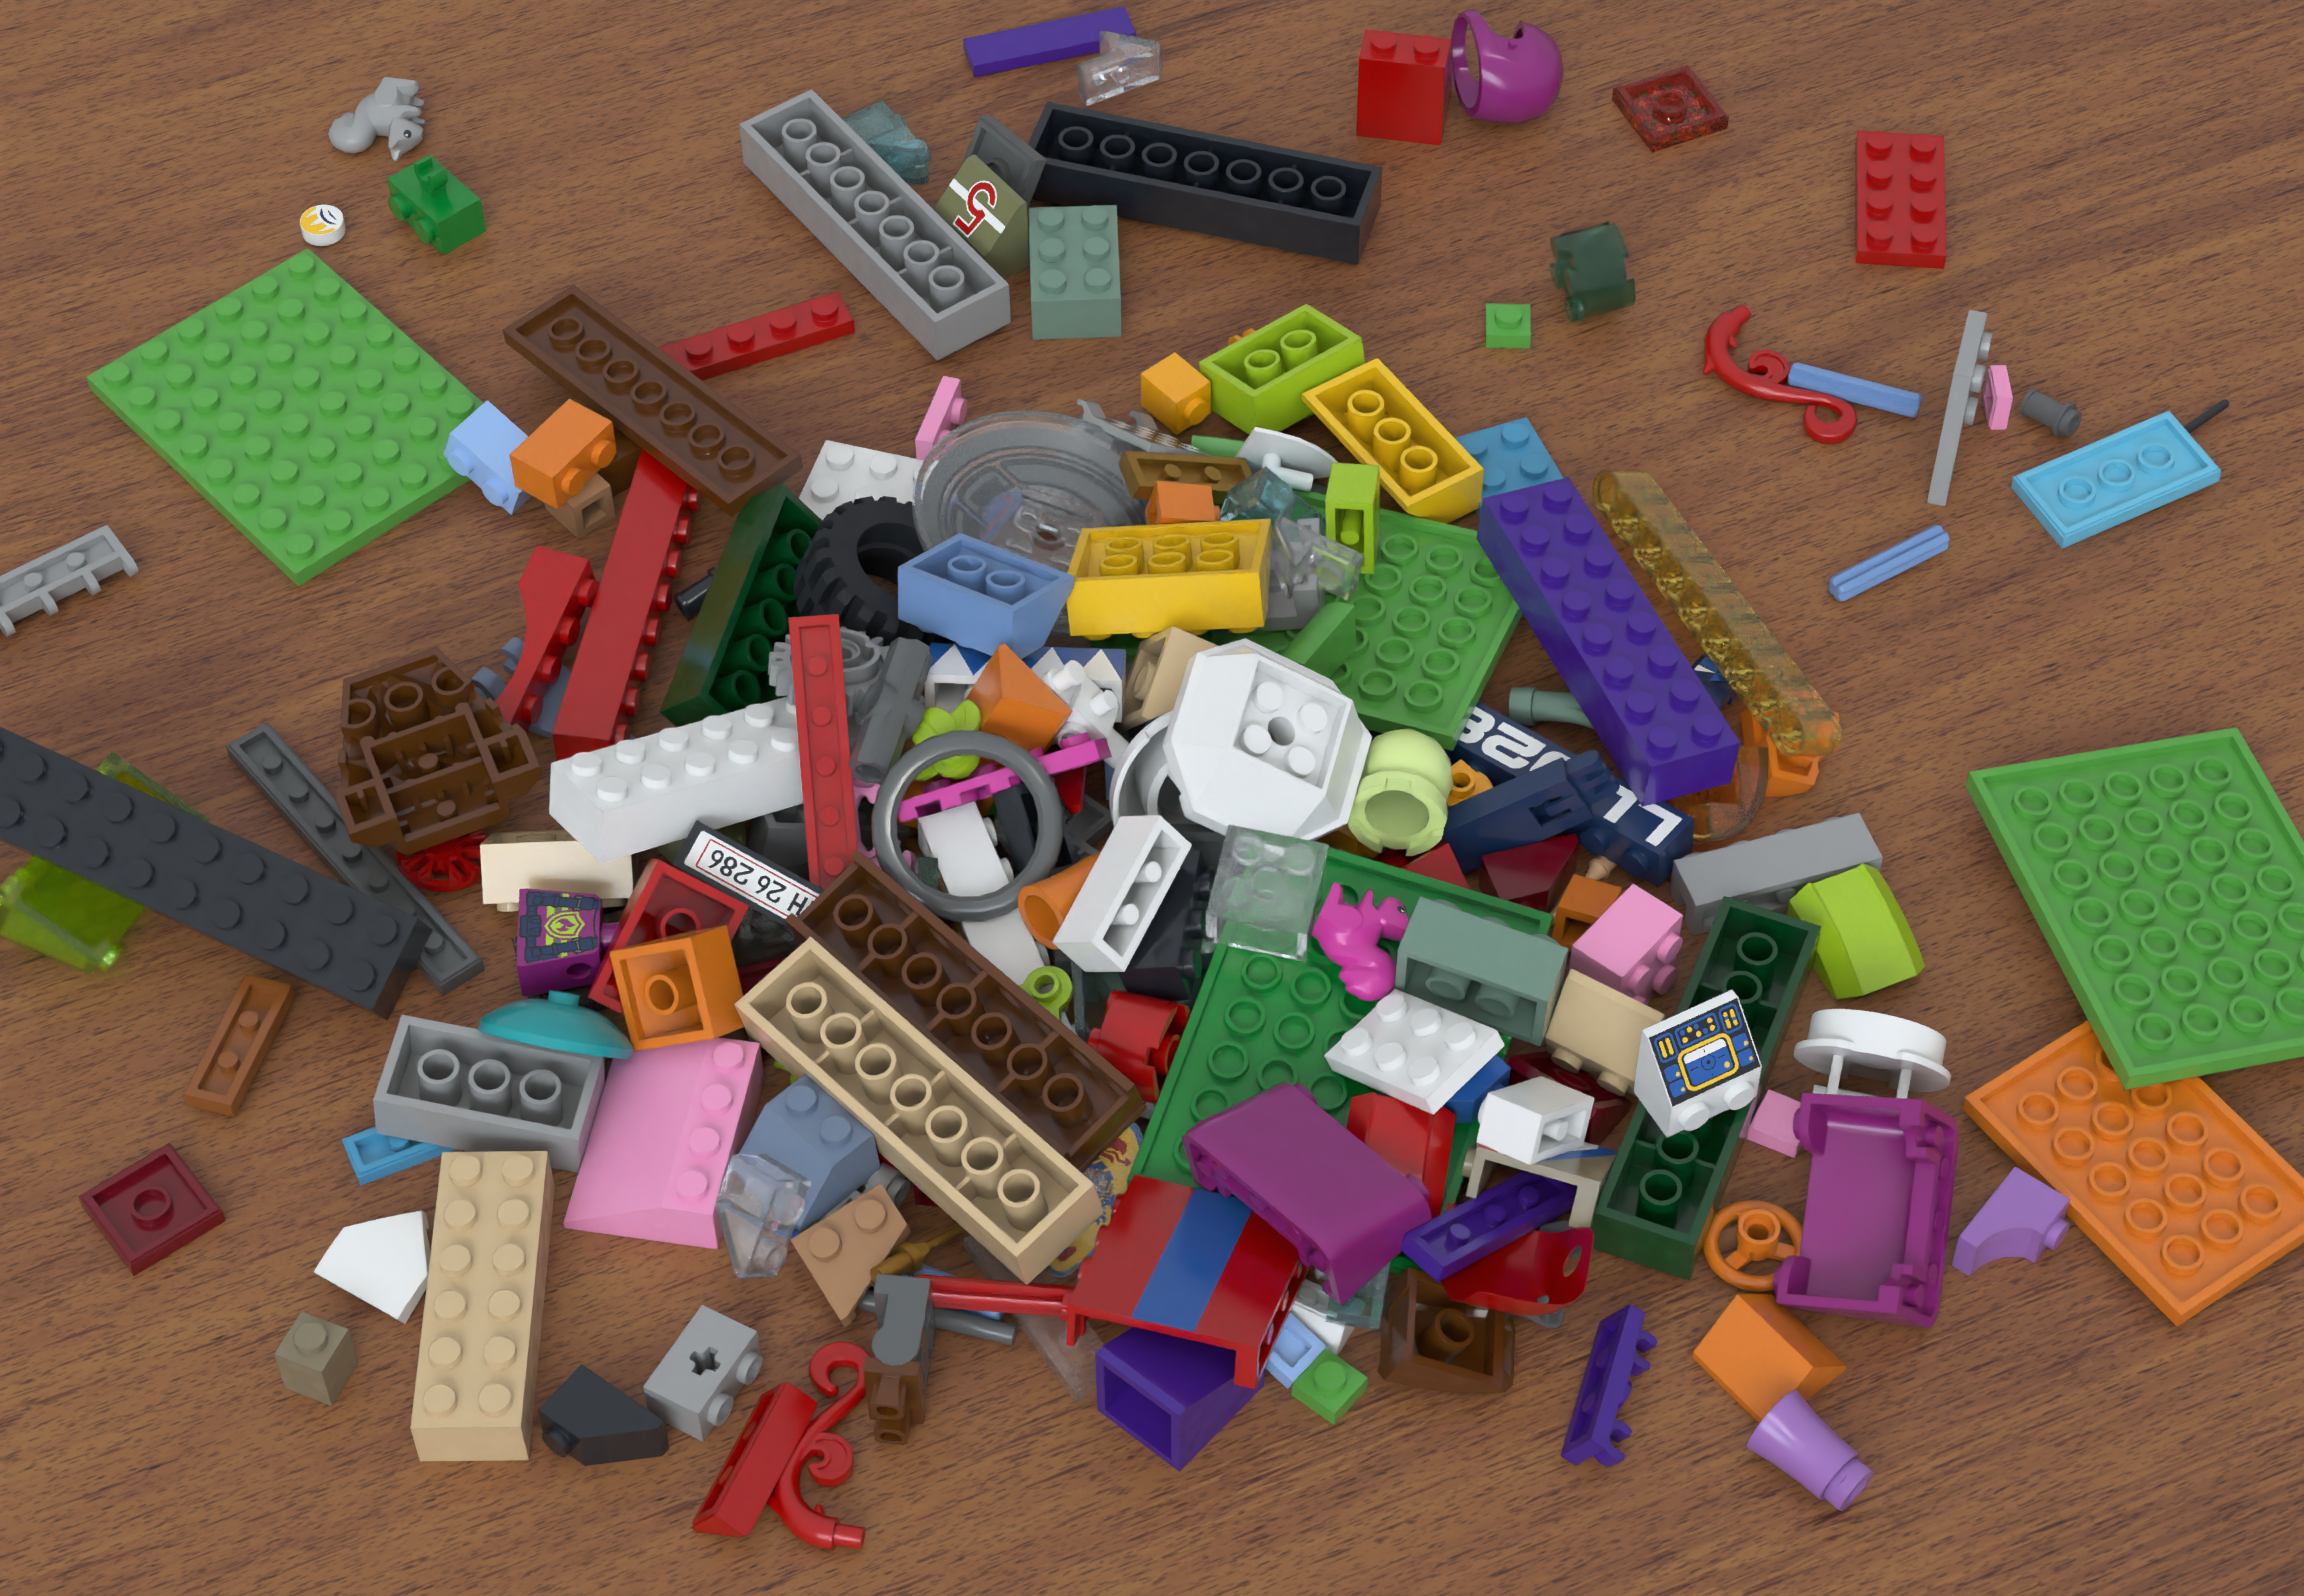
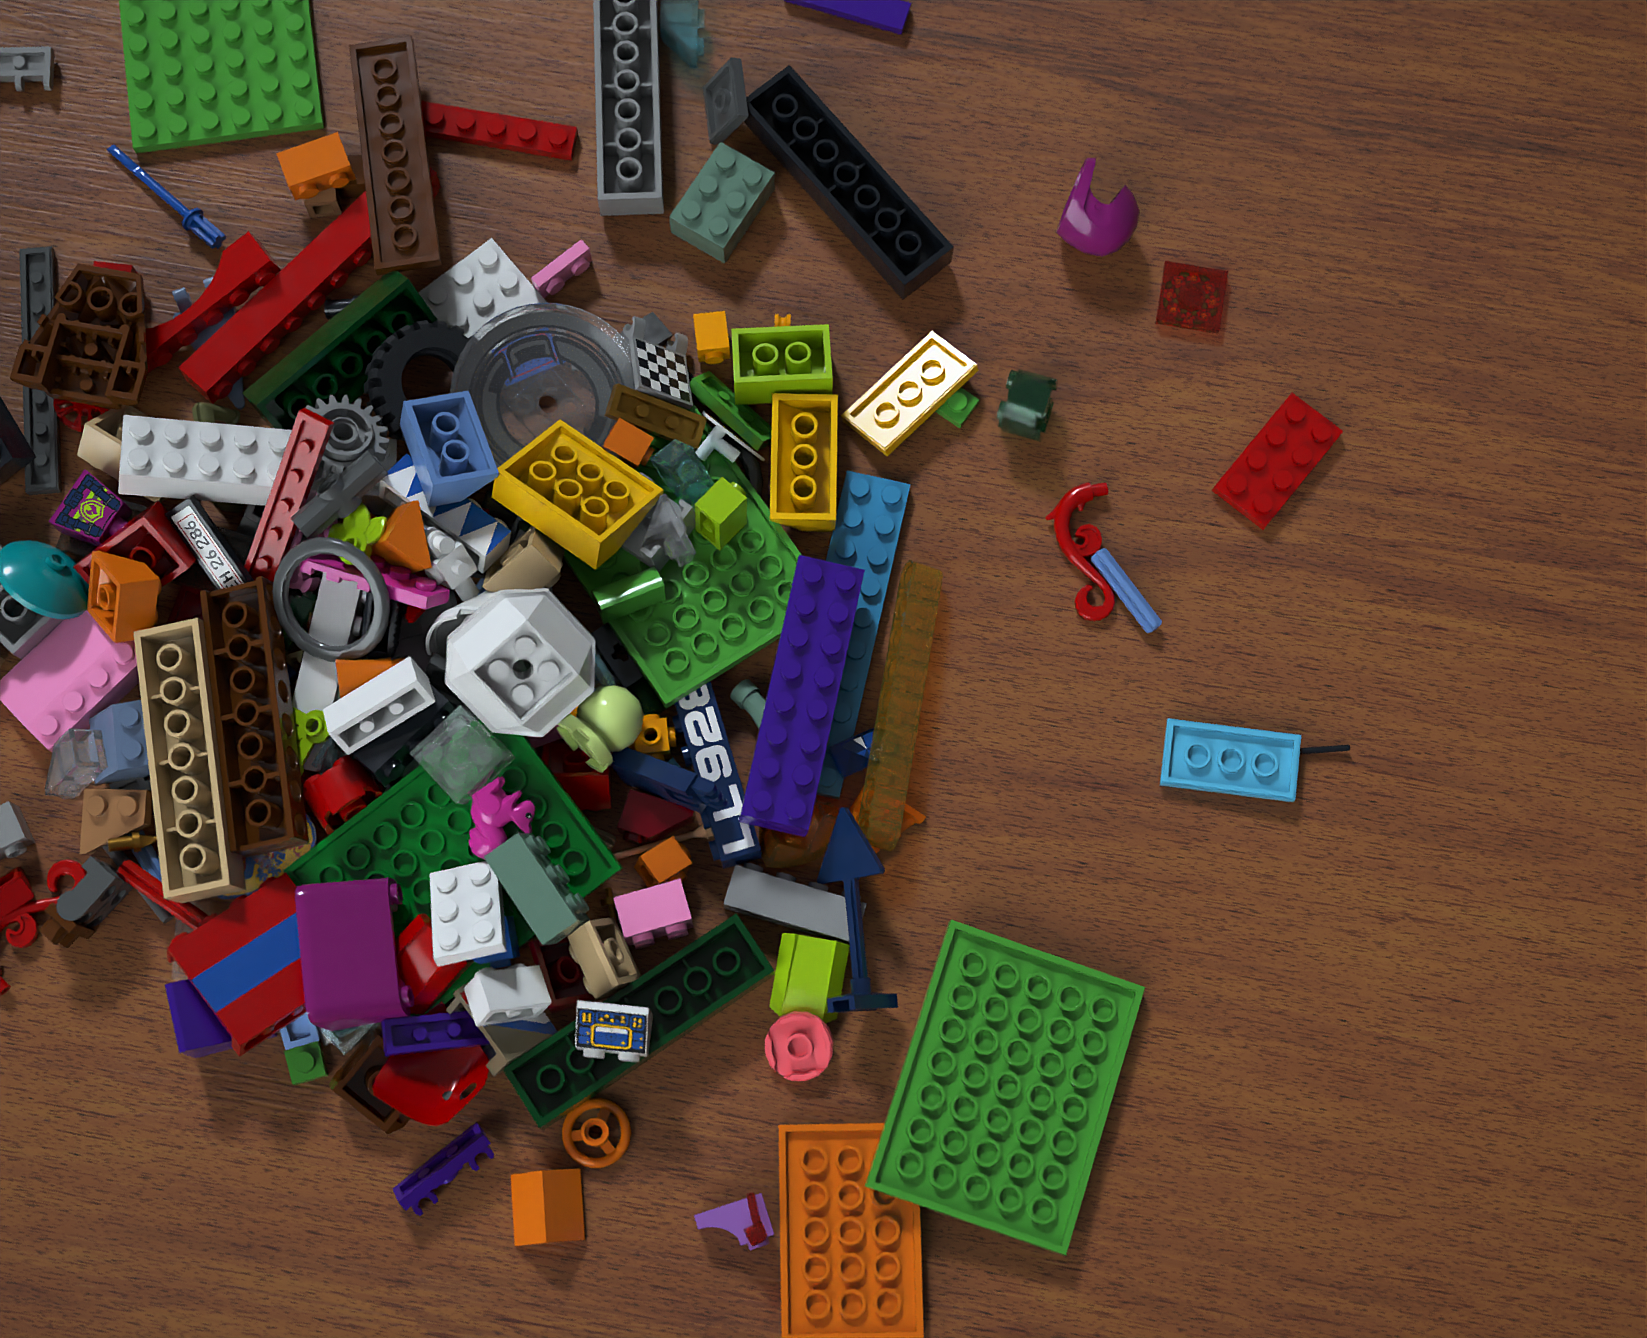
camera: 30 degrees right, 25 degrees up
(435, 603) = (192, 219): none -> blue piece
(482, 451) = (285, 128): light blue brick -> none
(987, 216) = (687, 134): olive slope -> none
(1122, 66) = (875, 55): clear slope -> none
(1403, 87) = (1022, 187): red slope -> none
(1450, 333) = (909, 393): none -> tile
(1774, 1124) = (671, 1066): bright pink tile -> none
(1800, 771) = (847, 860): none -> dark blue piece
(1810, 1452) = (515, 1284): medium lavender plant -> none
(1872, 1209) = (653, 1175): magenta windscreen -> none
(1875, 1049) = (725, 1082): white piece -> none
(1888, 563) = (1042, 730): medium blue axle -> none
(1918, 994) = (799, 1046): none -> coral tile
(1960, 407) = (1160, 656): light grey wing -> none
(1997, 397) = (1205, 655): bright pink tile -> none
(2049, 1197) = (755, 1233): none -> clear red hand
(2060, 417) = (1231, 686): dark grey pin -> none

